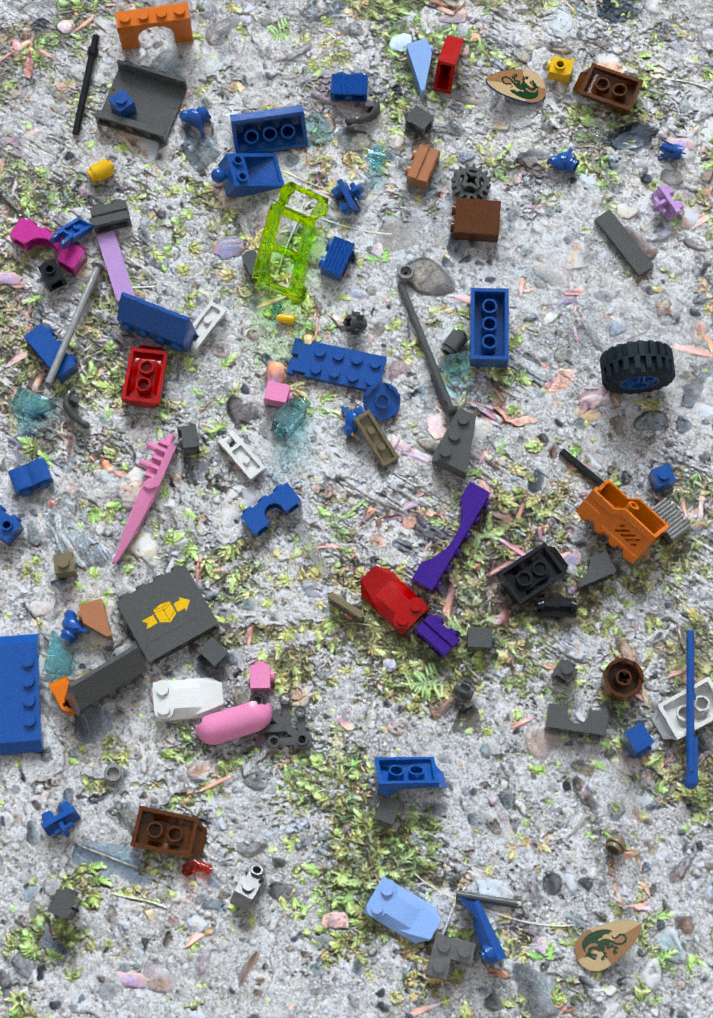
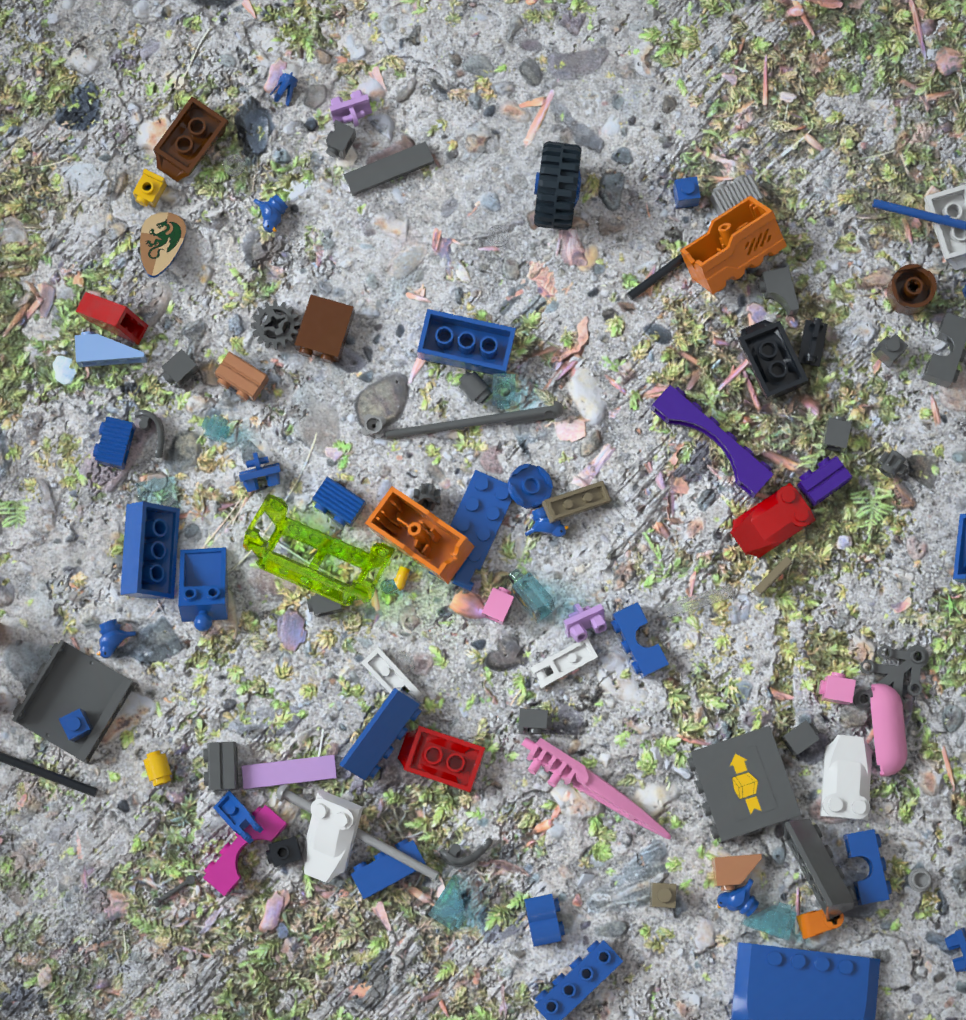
camera: 80 degrees left, 5 degrees up
(68, 302) = (330, 836): none -> white slope
(133, 723) = (866, 846): none -> blue arch
(279, 463) = (584, 619): none -> lavender hips
(319, 318) = (419, 534): none -> orange piece
(456, 444) = (601, 410): dark grey wedge -> none
(637, 200) = (340, 140): none -> dark grey brick

